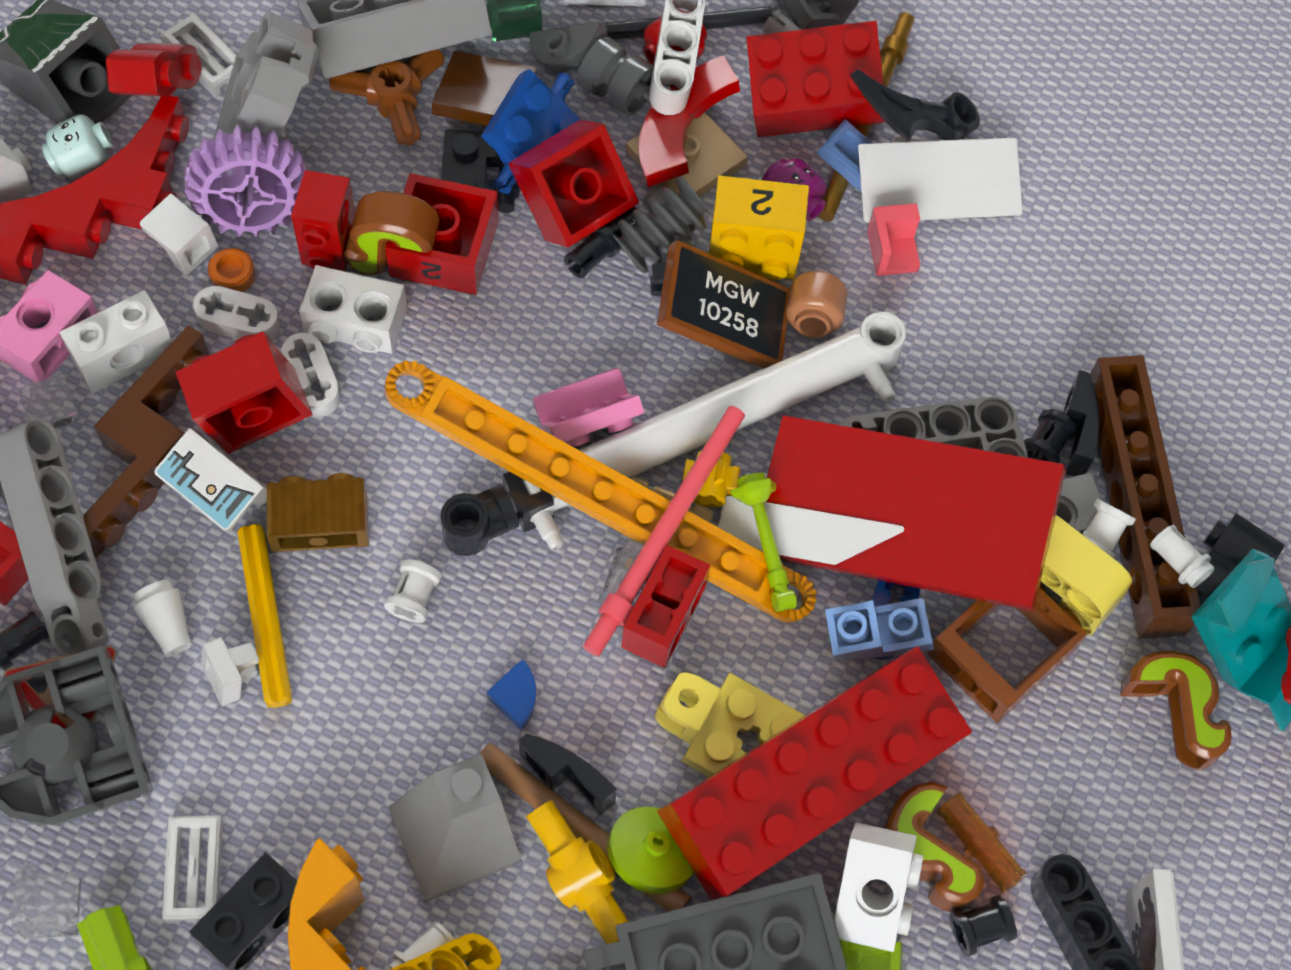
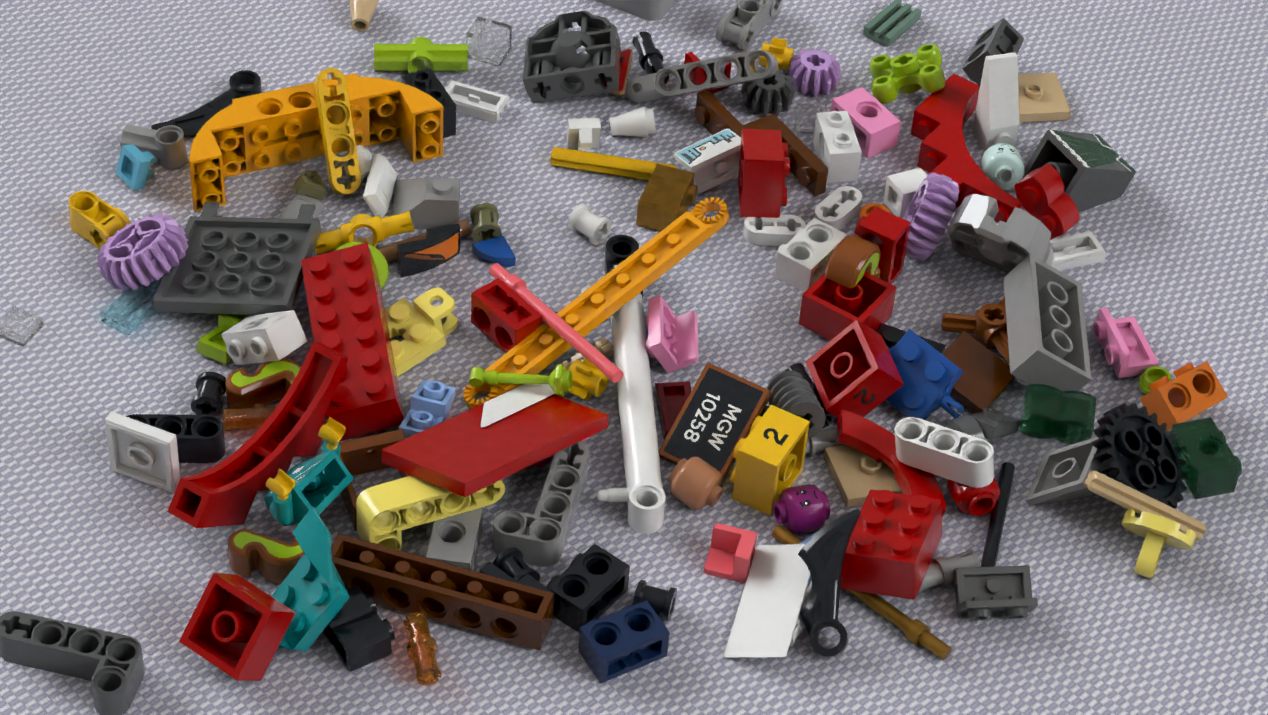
camera: 115 degrees right, 20 degrees down
(463, 902) = (379, 185): none -> white tile
(476, 723) = (485, 220): none -> olive bush
(693, 376) = (670, 400): none -> dark red tile
(1004, 290) = (660, 599): none -> black bush
(1032, 348) = (589, 587): none -> black brick
(1074, 782) = (228, 490): none -> red arch
(1084, 289) = (623, 641): none -> dark blue brick
(1107, 526) = (417, 536): white bush -> none
(1107, 695) = (309, 483): none -> teal torso
(1182, 556) = (367, 554): white pin -> none
(1211, 488) = (422, 648): none -> clear orange pin

